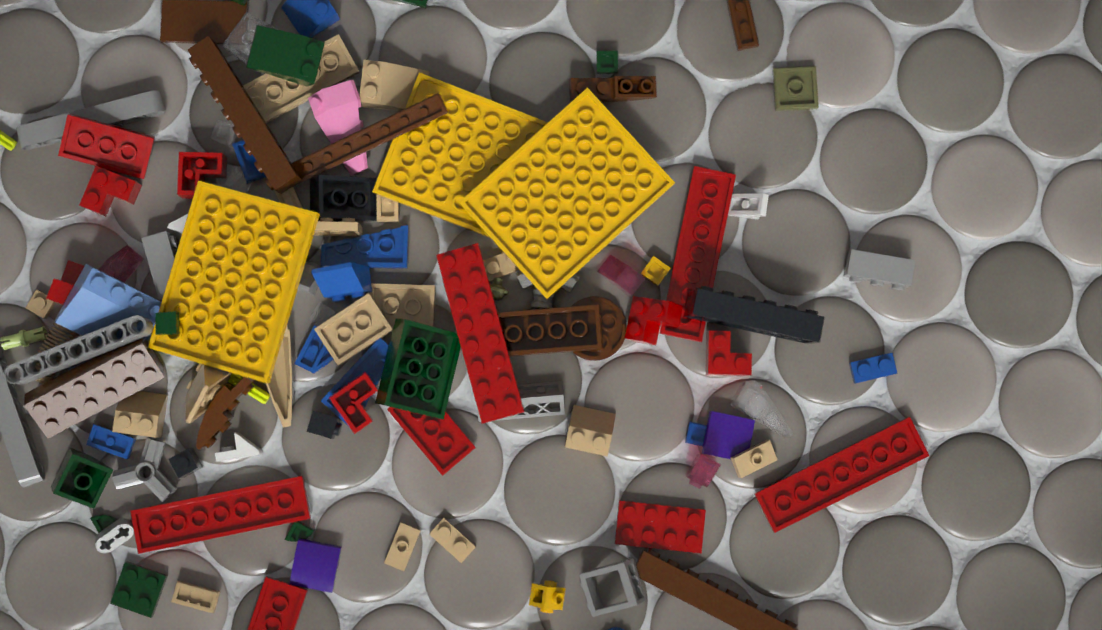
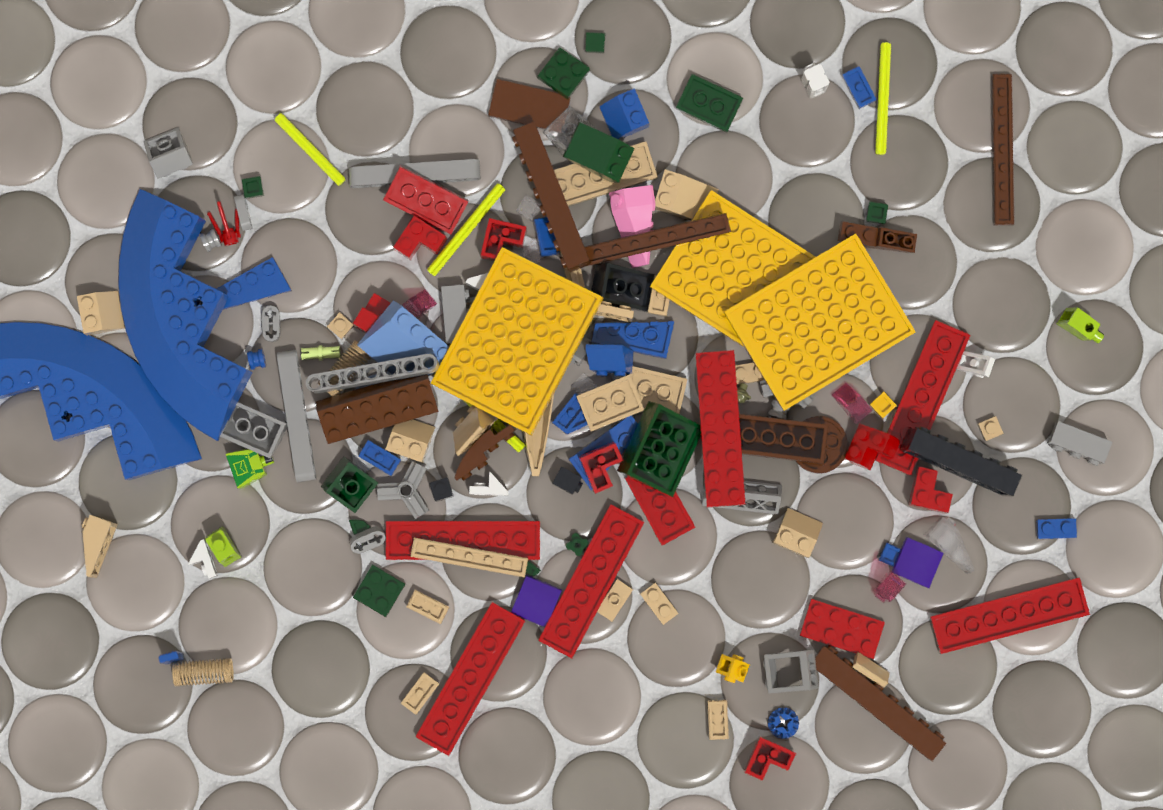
camera: 15 degrees right, 0 degrees up
(159, 170) = (466, 229): none -> neon yellow axle
(167, 323) = (452, 365): dark green tile -> none
(230, 532) = (469, 557): none -> tan tile
(345, 487) = (577, 549): none -> dark green plate
(372, 531) = (591, 581): none -> red plate
(701, 566) = (871, 669): none -> tan tile
(754, 458) = (936, 586): tan plate -> none
(778, 273) = (990, 428): none -> tan plate
(795, 88) = (1038, 269): olive tile -> none
(854, 139) = (1080, 325): none -> lime torso

